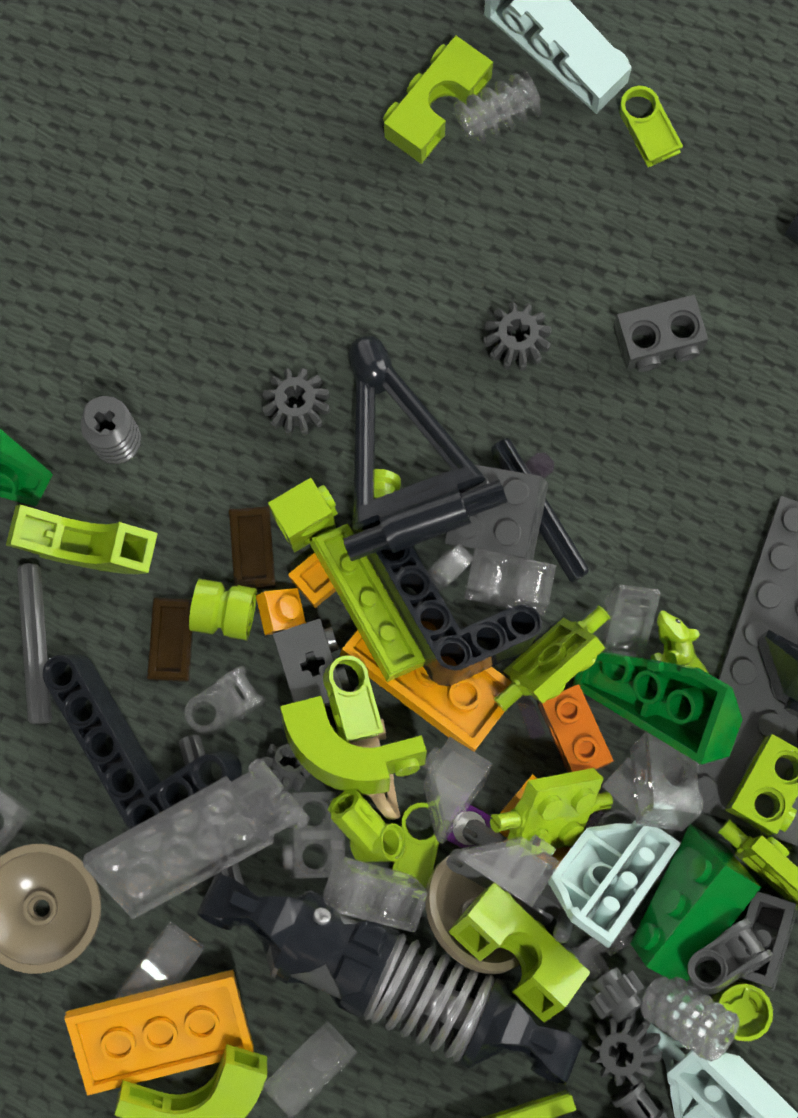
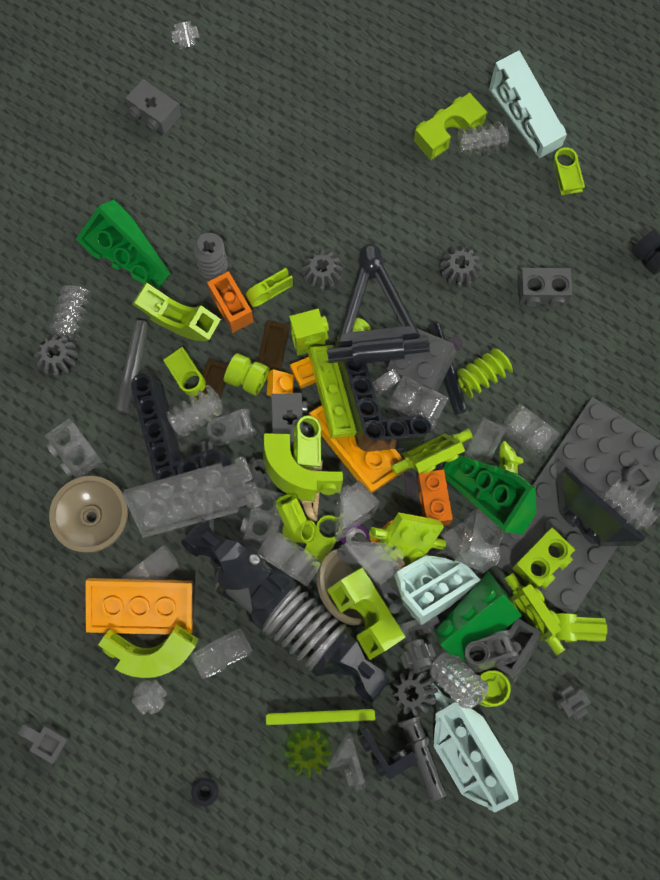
camera: 10 degrees right, 5 degrees down
(117, 626) = (182, 369): none -> lime piece
(162, 695) = (196, 413): none -> clear piece
(163, 496) = (230, 302): none -> orange brick
(219, 455) = (269, 288): none -> lime piece
(598, 503) = (482, 371): none -> lime piece
(697, 581) = (530, 431): none -> clear brick

